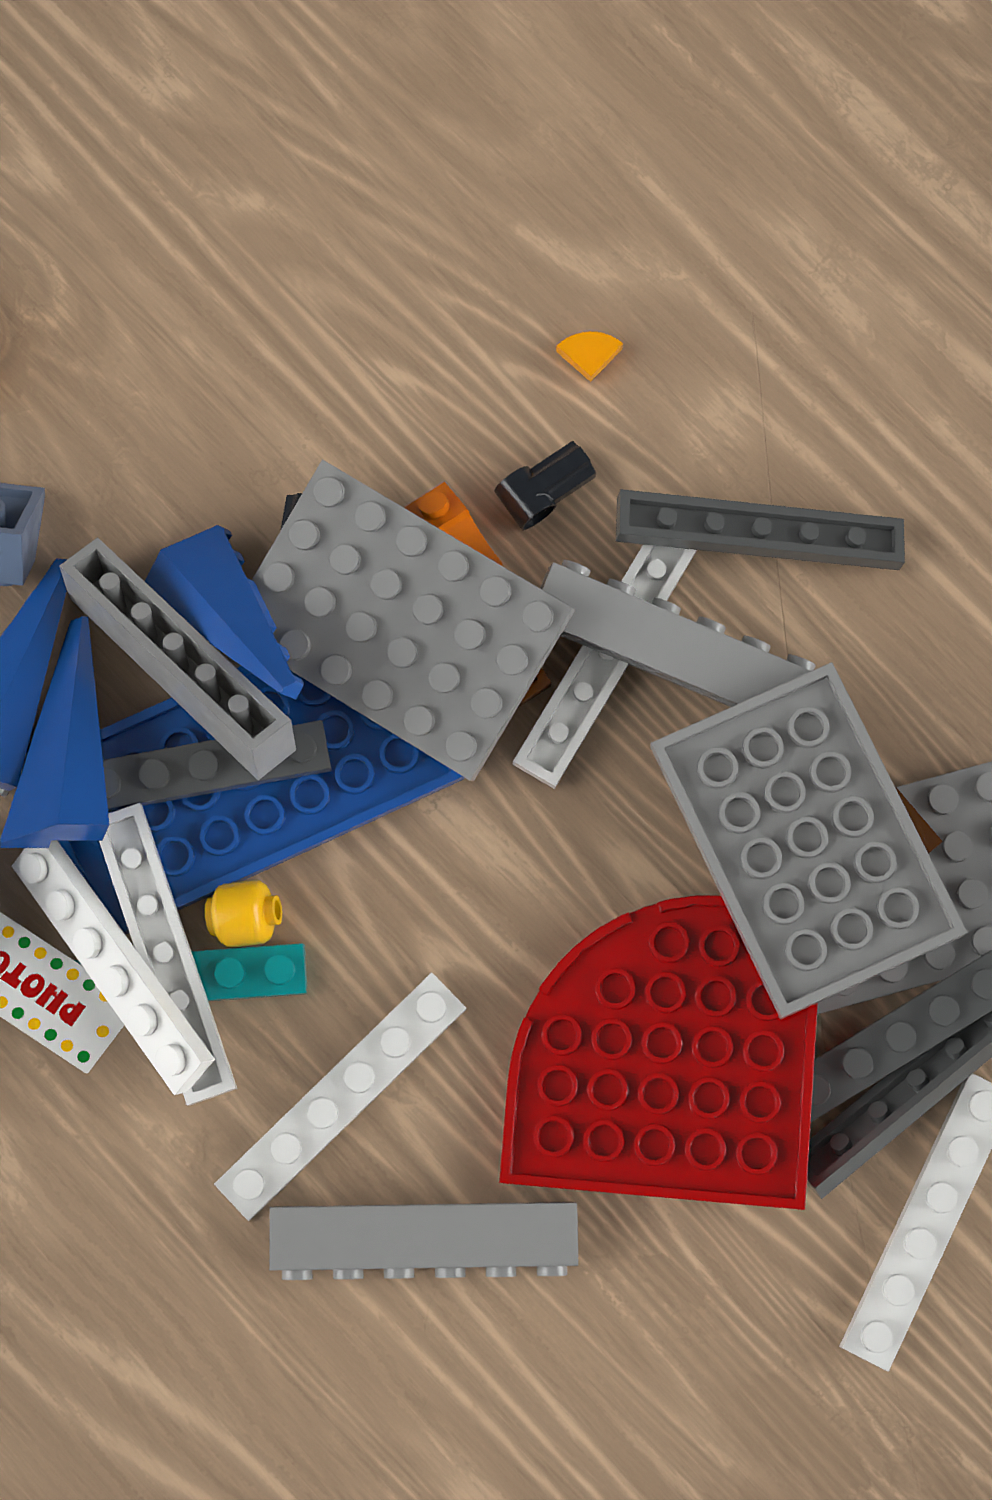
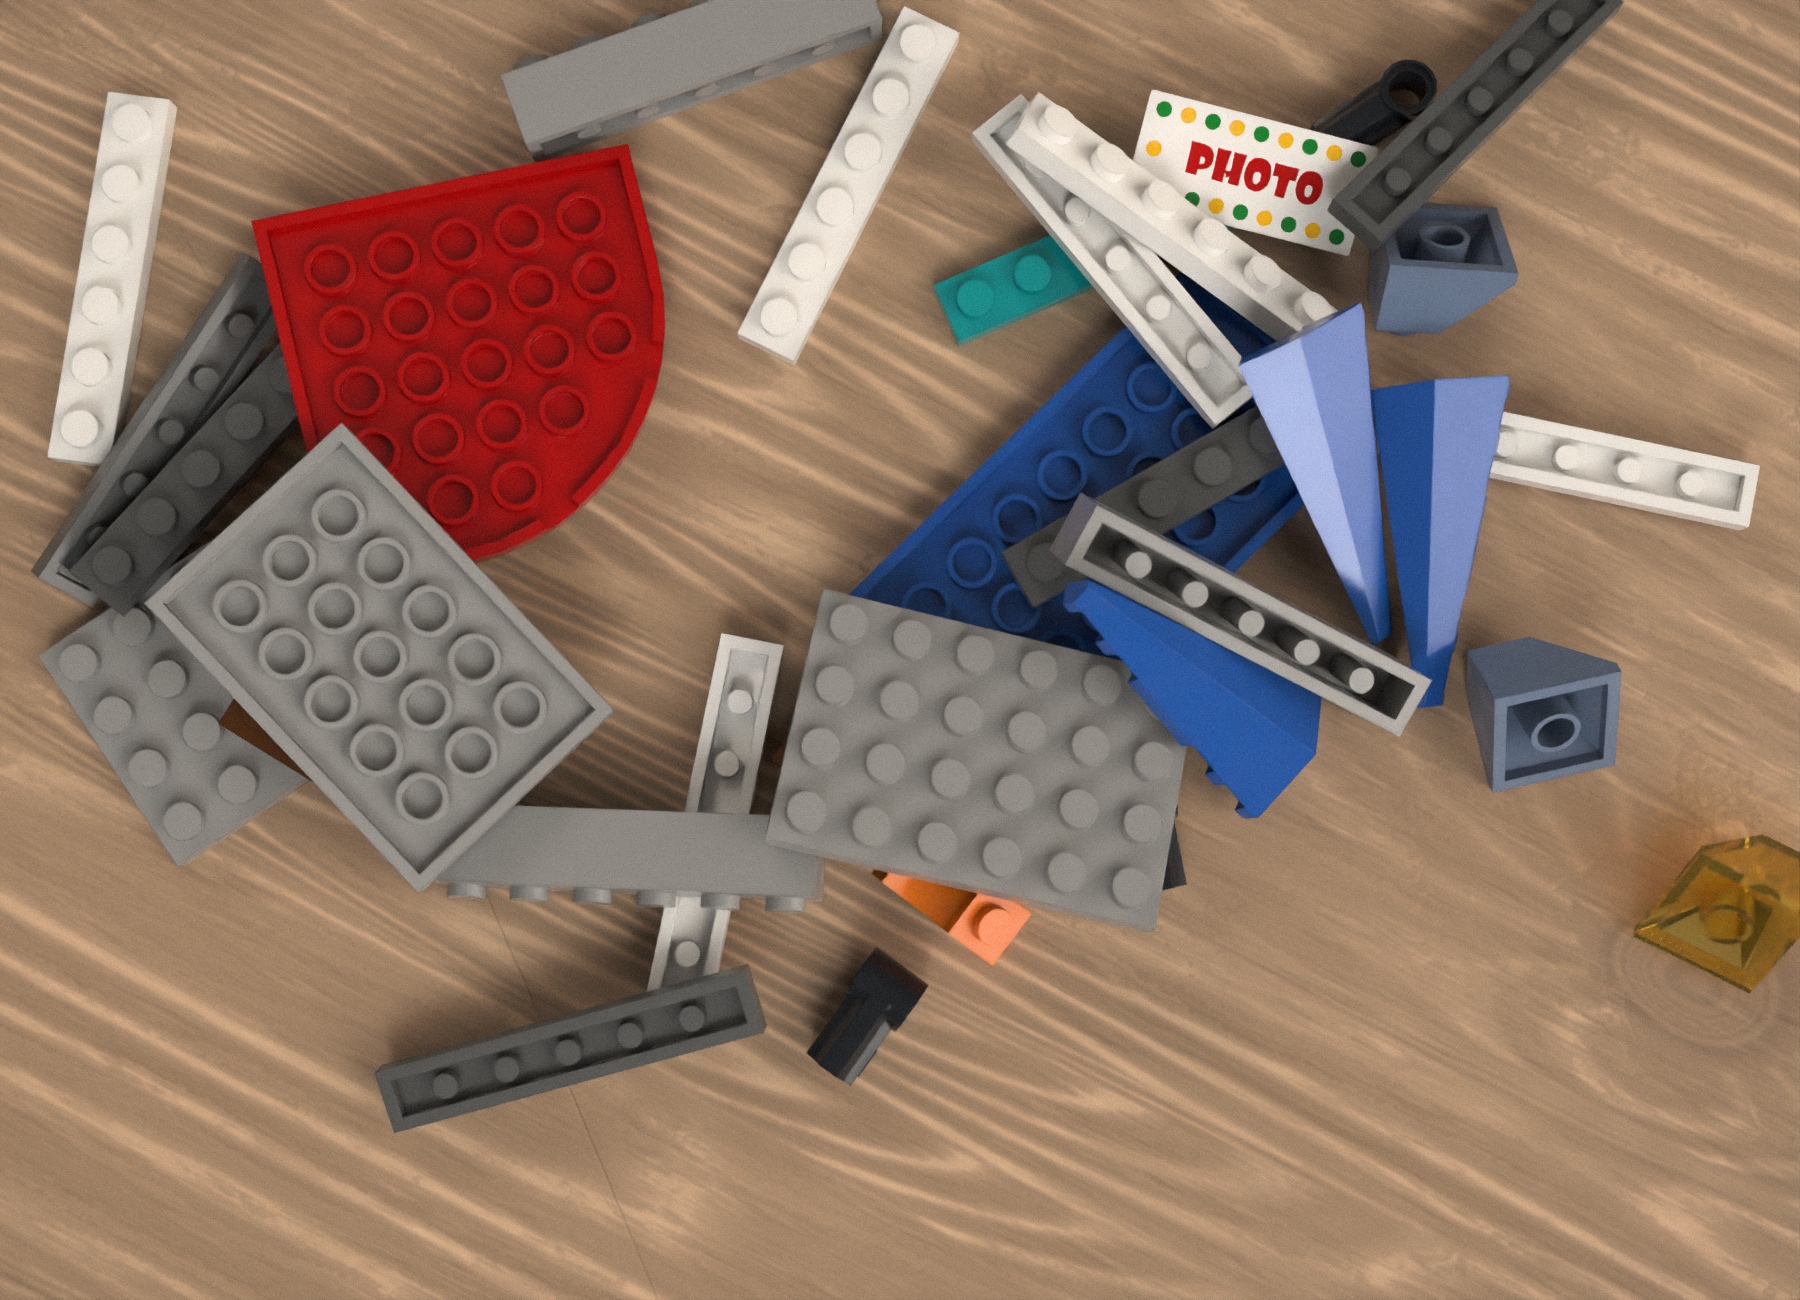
camera: 160 degrees right, 5 degrees up
(243, 913) = (1042, 348): yellow head -> none
(589, 352) = (871, 1219): light orange tile -> none

